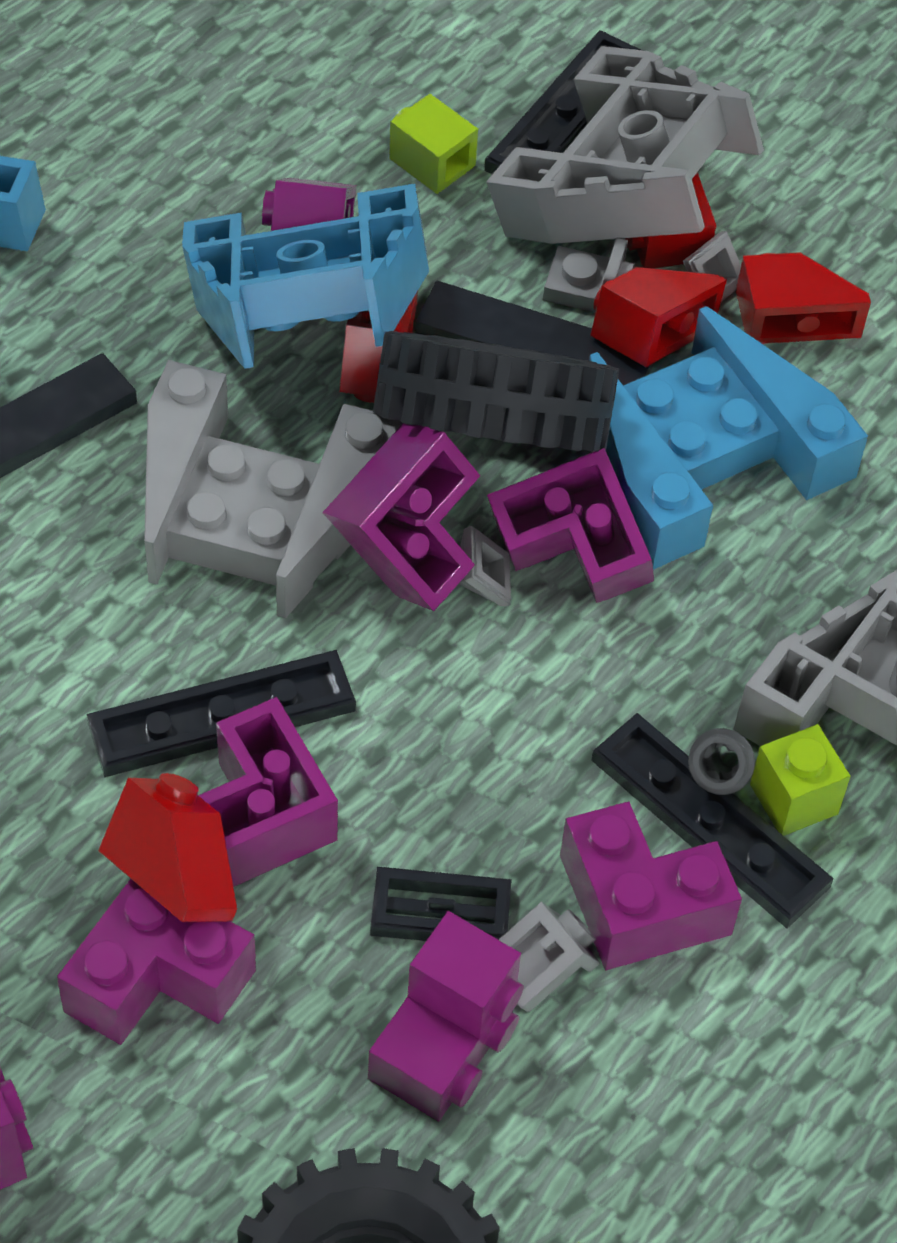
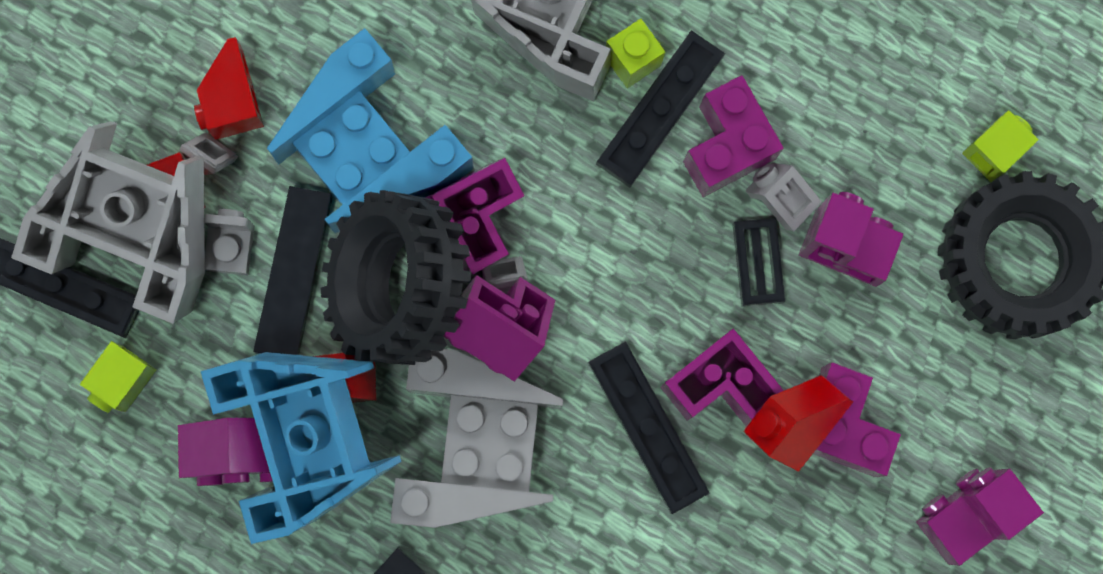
camera: 105 degrees left, 25 degrees up
(653, 311) = (266, 189): red slope -> none
(710, 770) = (635, 99): dark grey cone -> none

